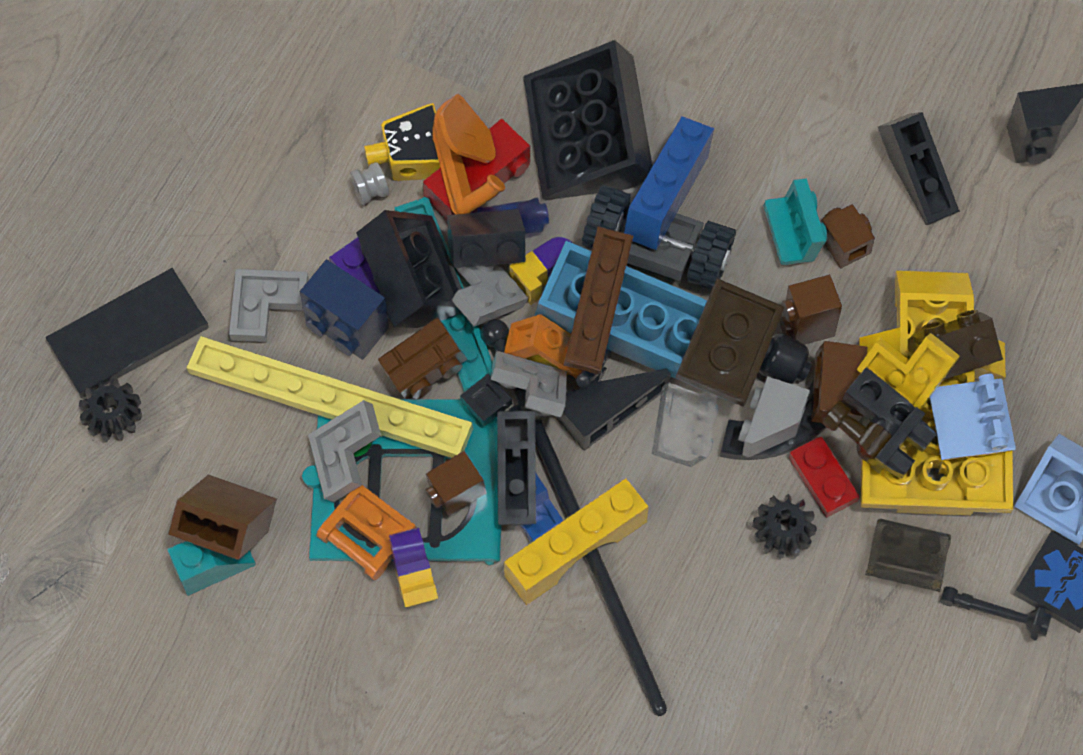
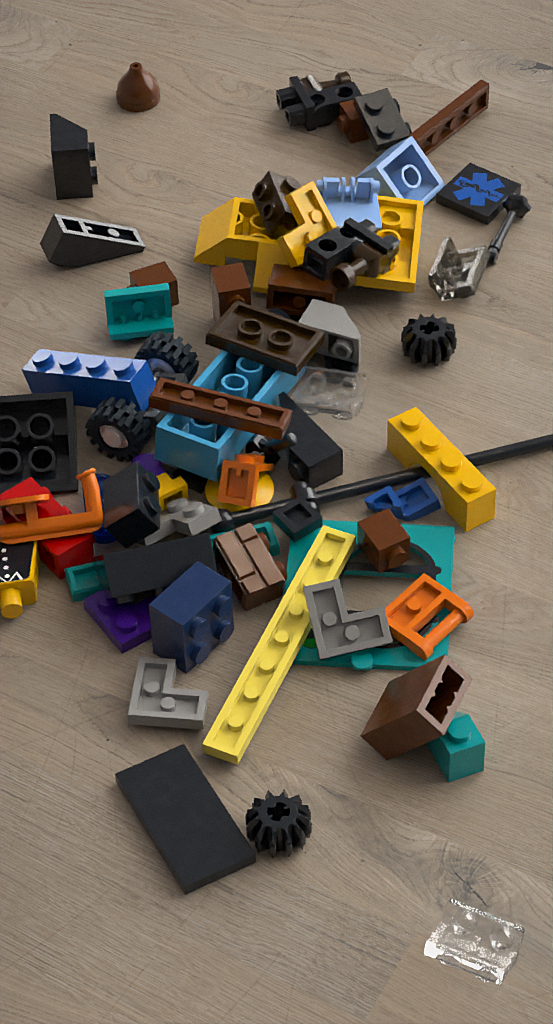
camera: 85 degrees left, 20 degrees down
(369, 183) = (43, 609): light grey wheel -> none
(412, 567) = (468, 576): leg -> none
(516, 468) = (355, 494): black slope -> none
(543, 384) = (285, 475): light grey plate -> none
(823, 476) = (382, 319): red plate -> none

